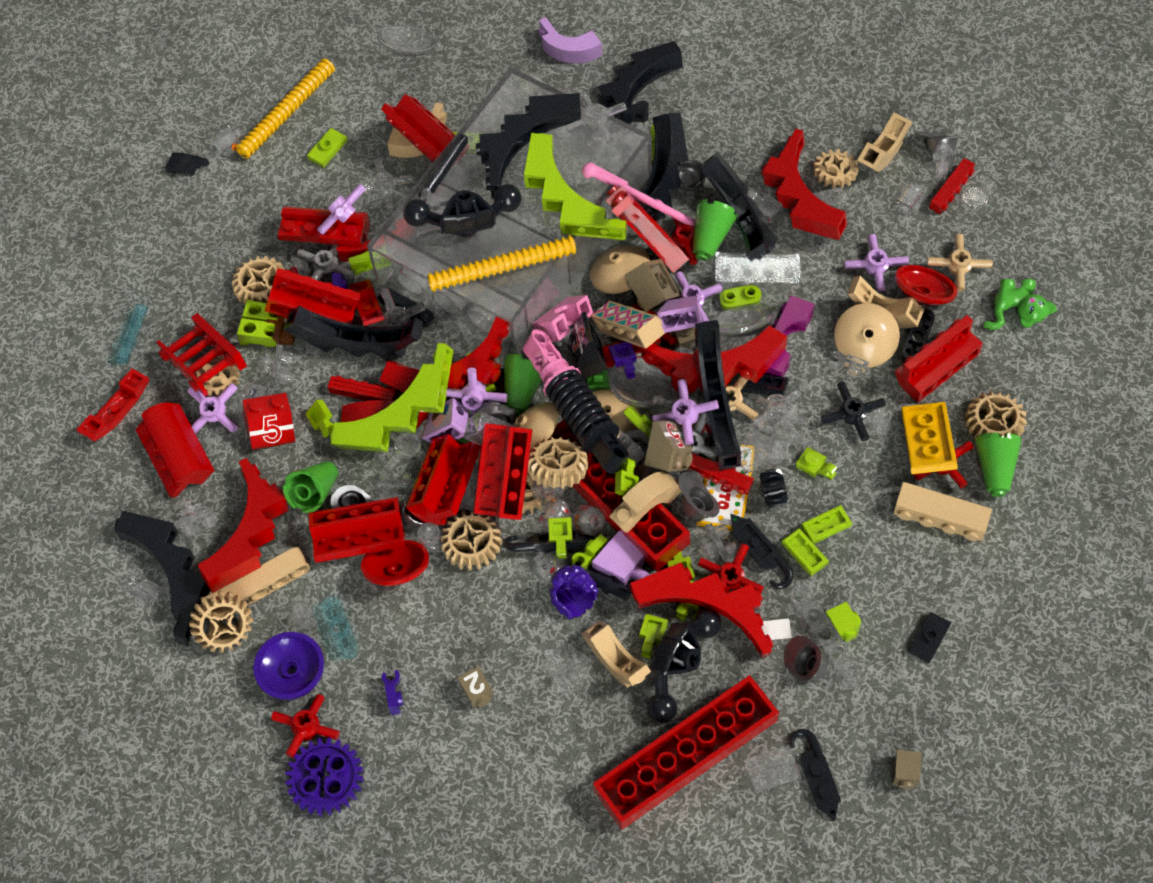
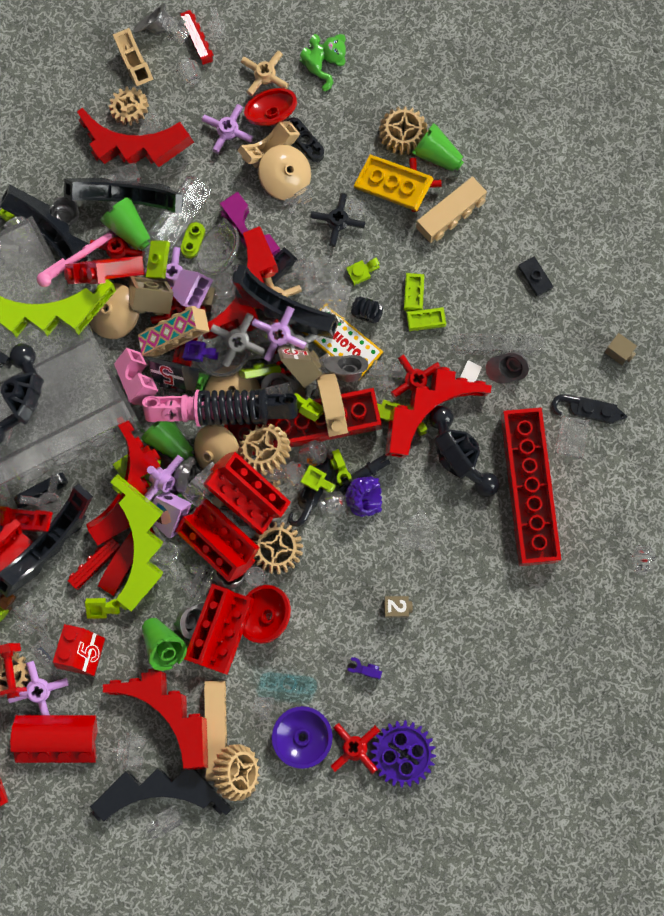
camera: 65 degrees left, 15 degrees up
(501, 263) = (79, 394): yellow piece -> none
(614, 656) = (432, 495): tan arch -> none
(620, 560) = (359, 448): lavender torso -> none
(652, 631) = (424, 458): lime plate -> none
(655, 381) = (234, 347): none -> light grey bar
(694, 274) = (157, 259): none -> lime plate
(729, 478) = (341, 336): red piece -> none
(760, 549) = (408, 346): black plate -> none
(845, 621) = (495, 323): lime brick -> none
(939, 359) = (335, 137): red brick -> none

